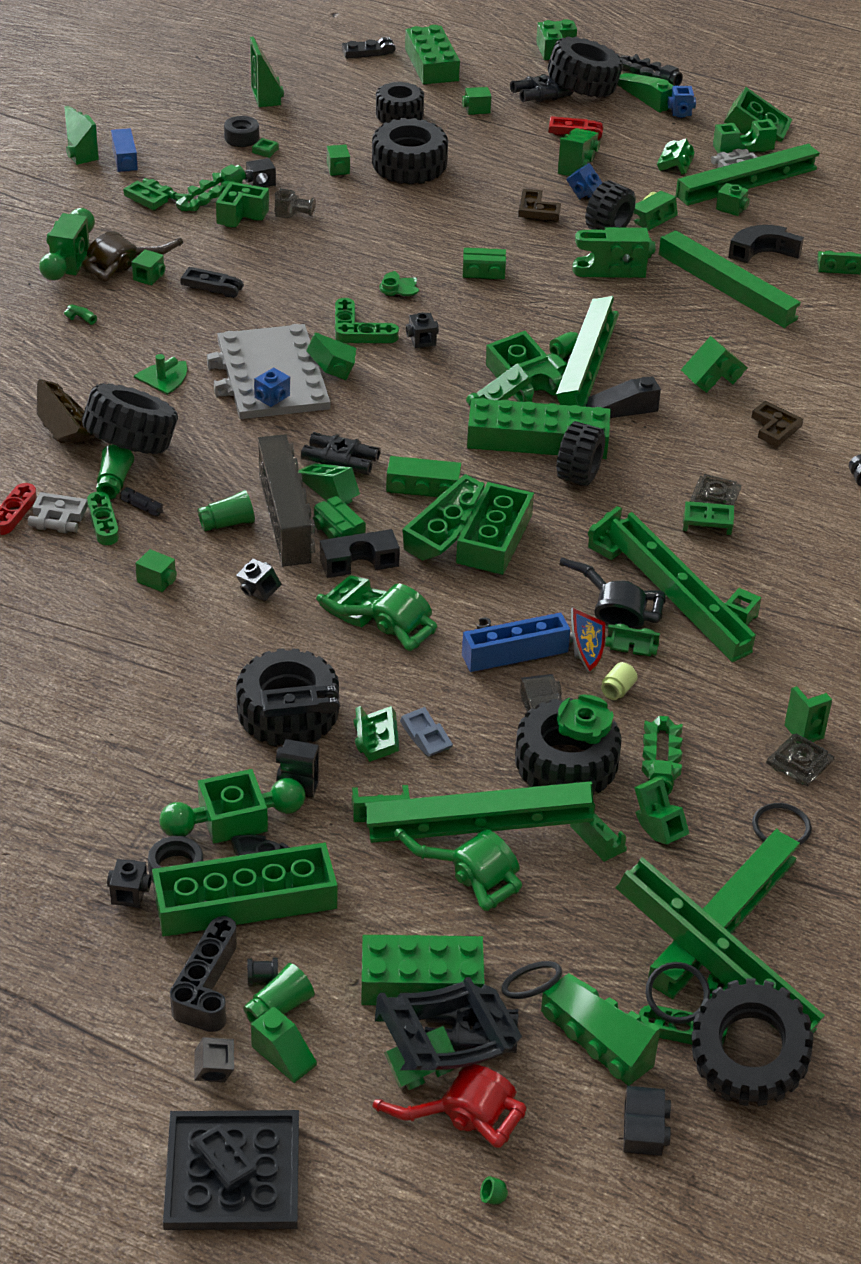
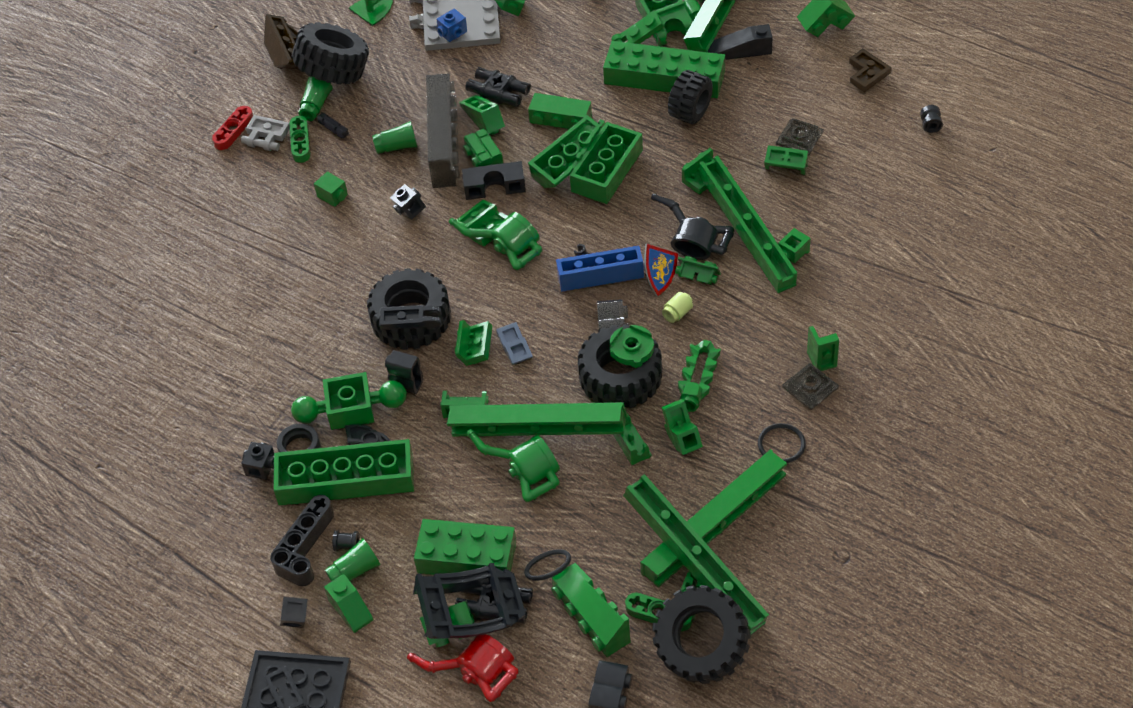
camera: 15 degrees right, 10 degrees up
(678, 1020) = (644, 567): black tyre -> none

